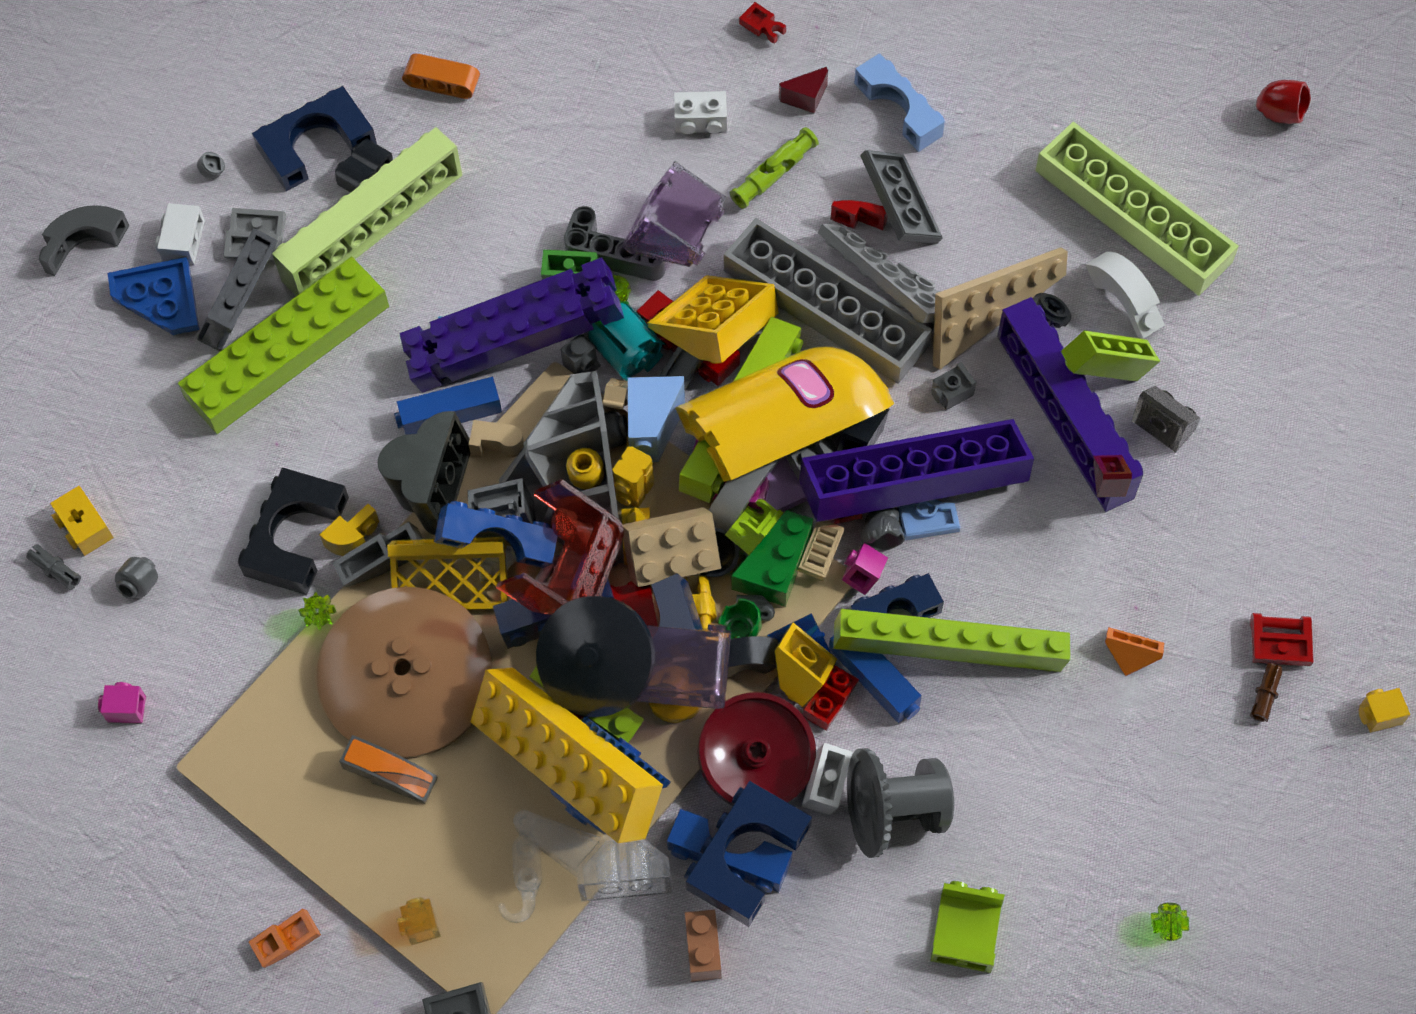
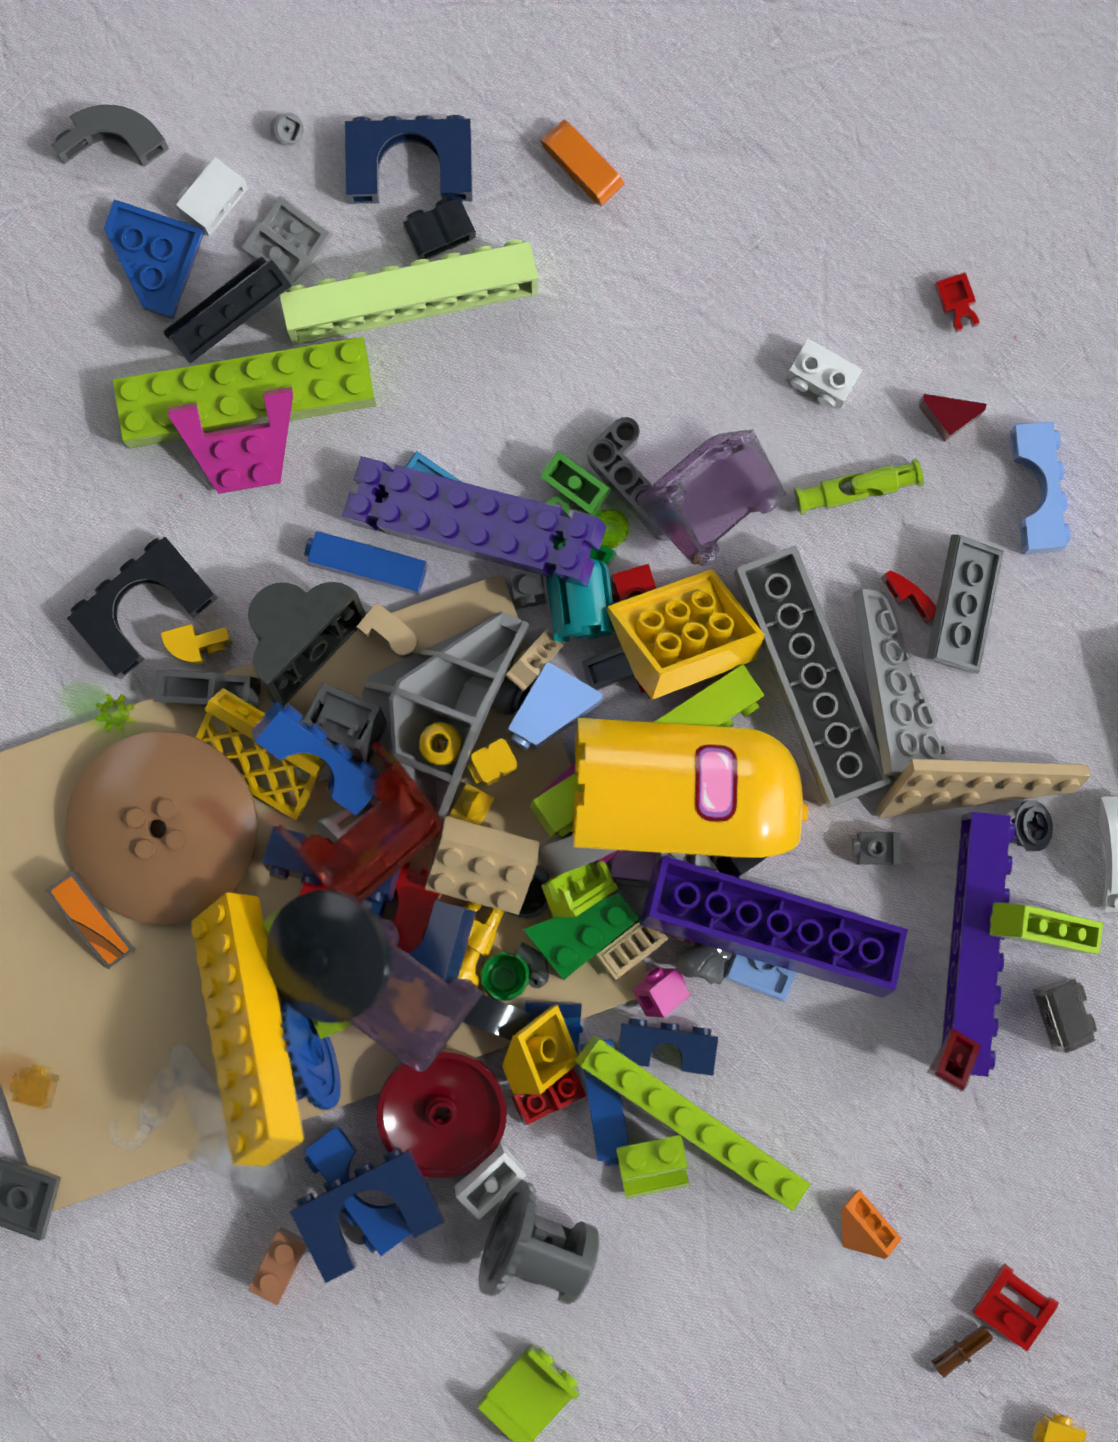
camera: 25 degrees right, 20 degrees up
(308, 384) = (241, 455): none -> dark pink wing
(940, 690) = (653, 1166): none -> lime panel

